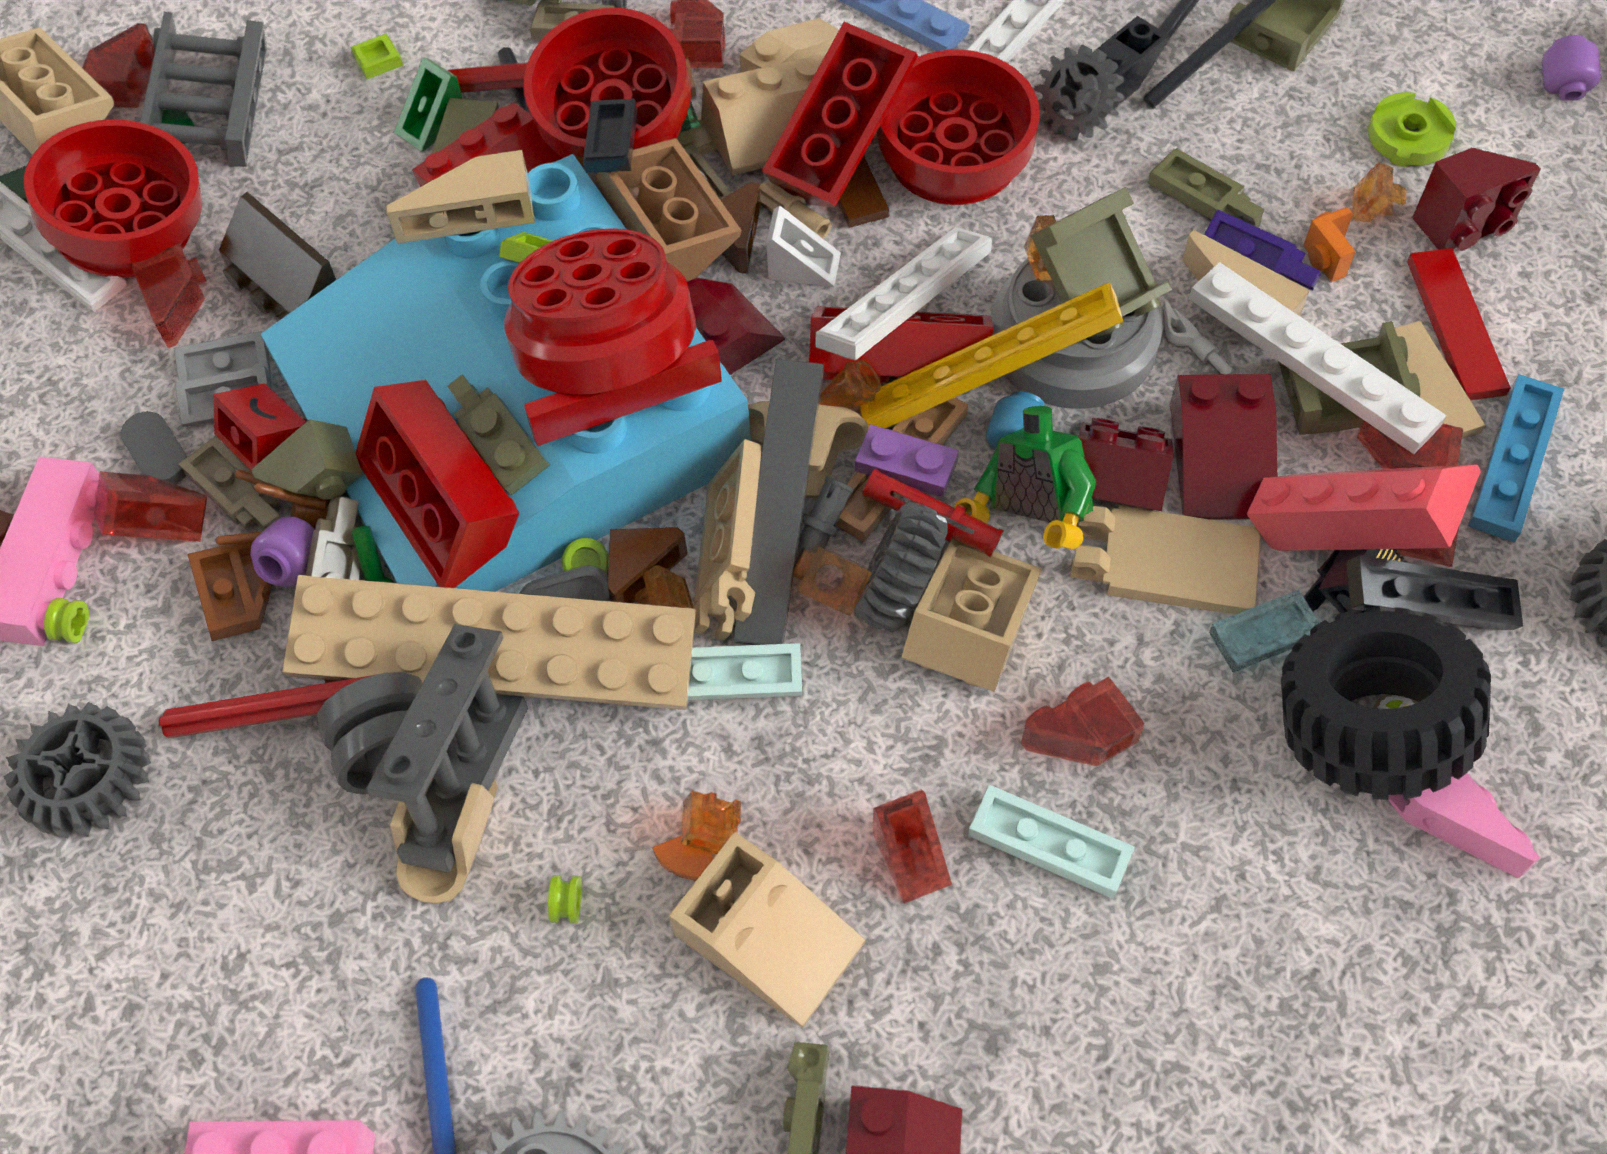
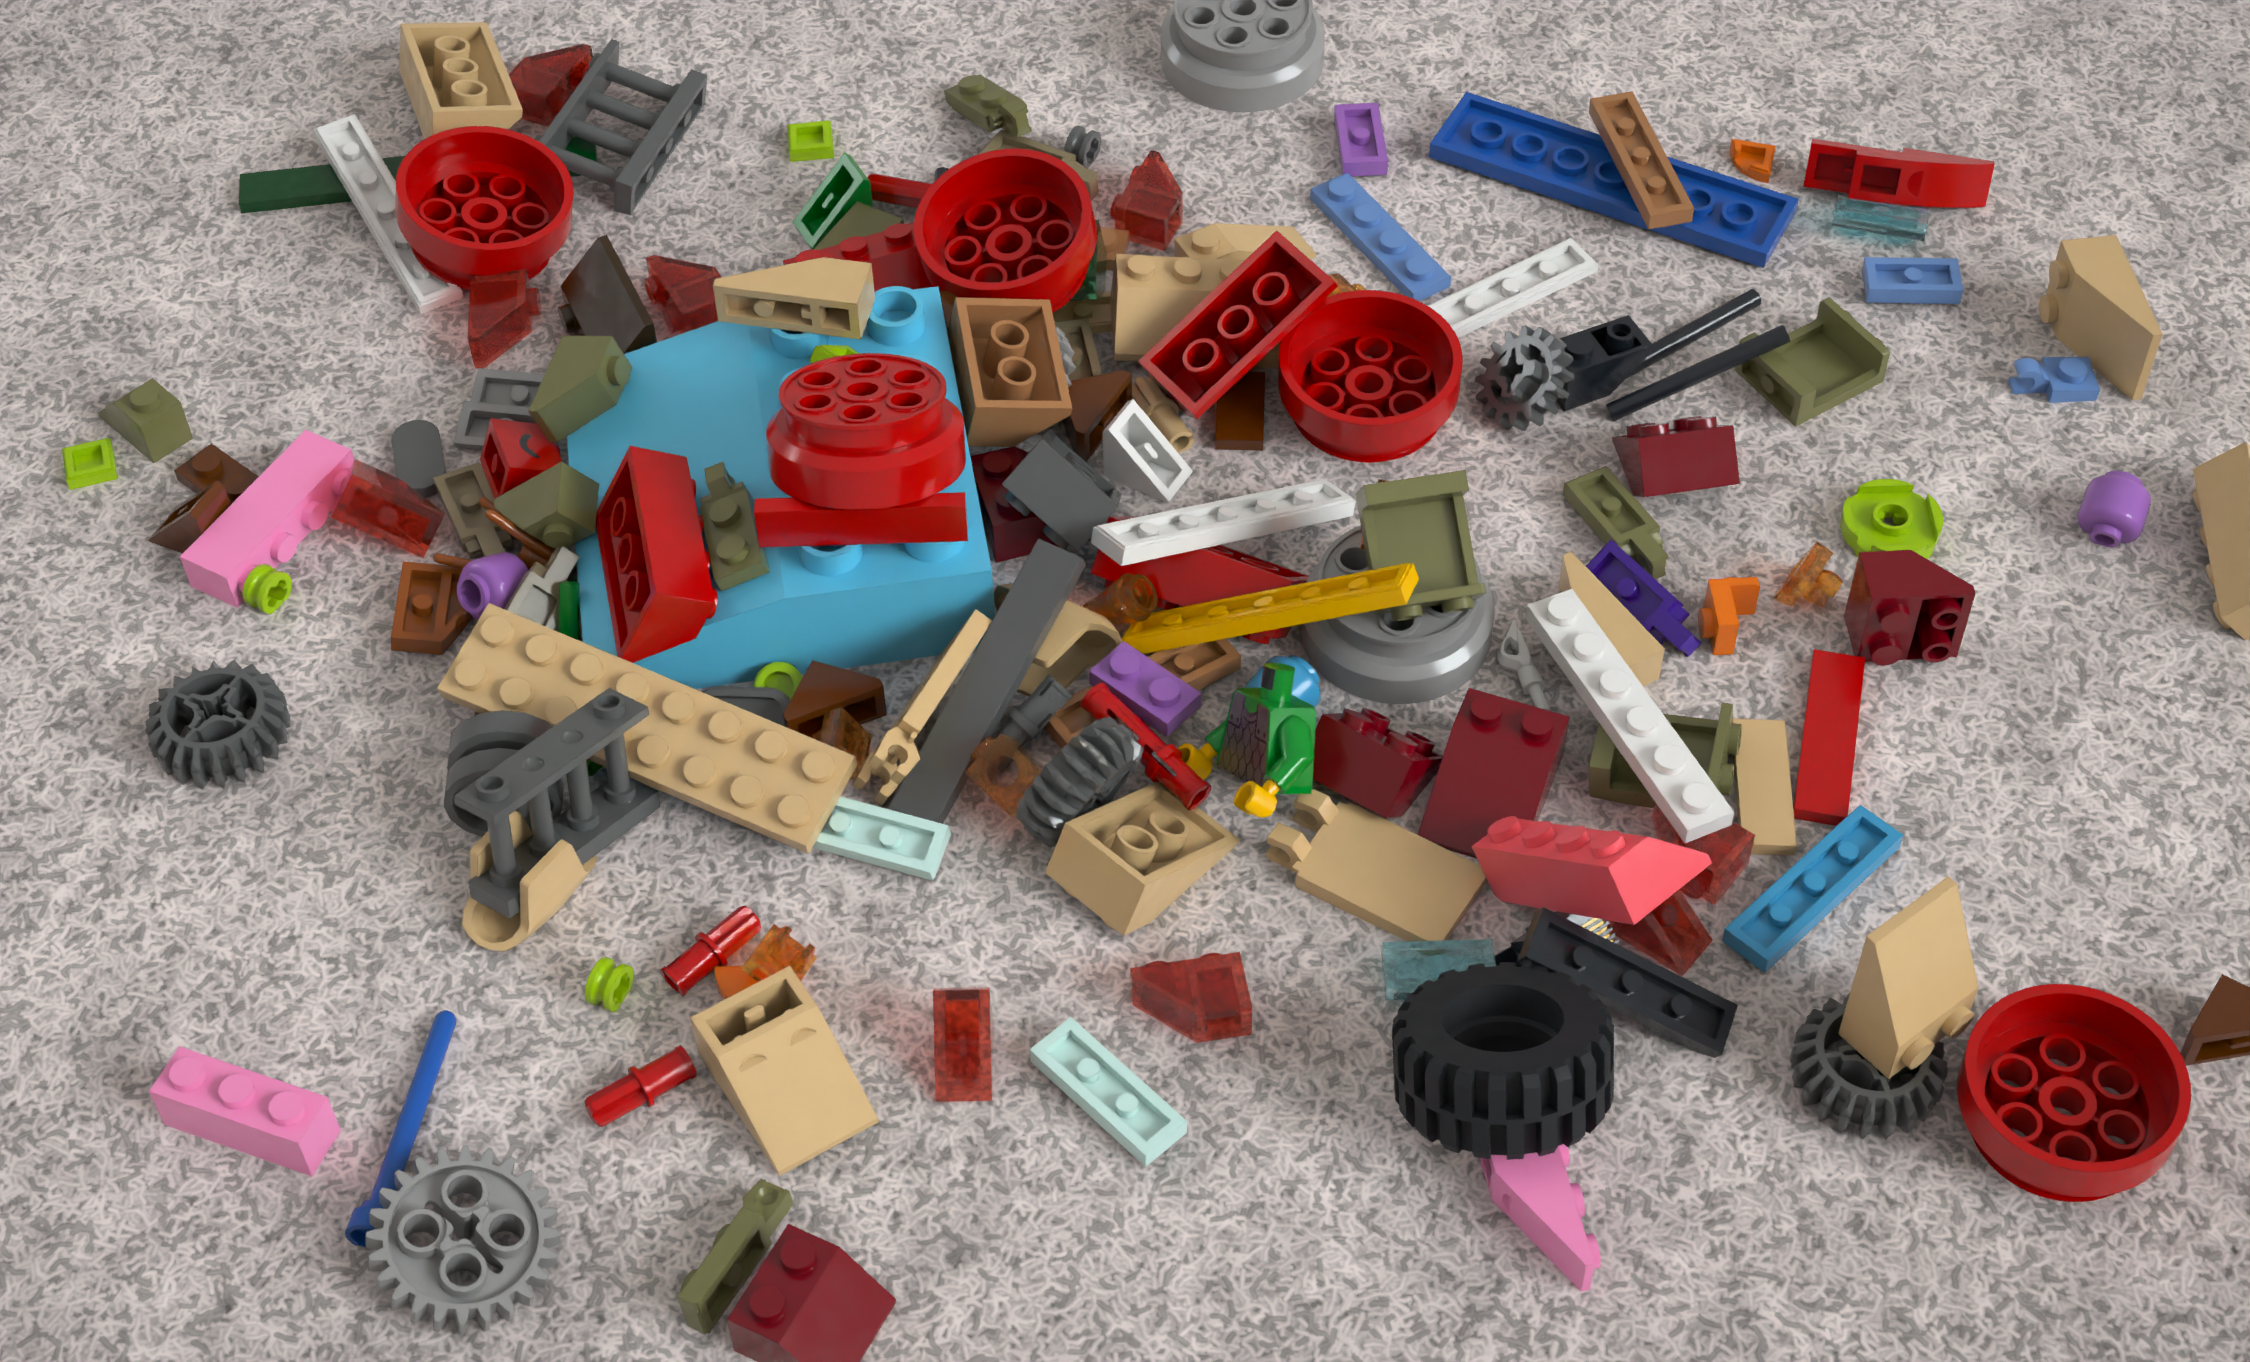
camera: 20 degrees right, 10 degrees down
(248, 709) = (385, 718): red axle -> none
(286, 338) = (579, 384): none -> olive slope
(339, 224) = (683, 291): none -> clear red slope
(610, 136) = (977, 277): black tile -> none
(638, 989) = (640, 1086): none -> red axle
(641, 832) = (711, 950): none -> red axle
(761, 308) = (1061, 492): none -> dark grey slope
(1227, 122) = (1678, 459): none -> dark red slope

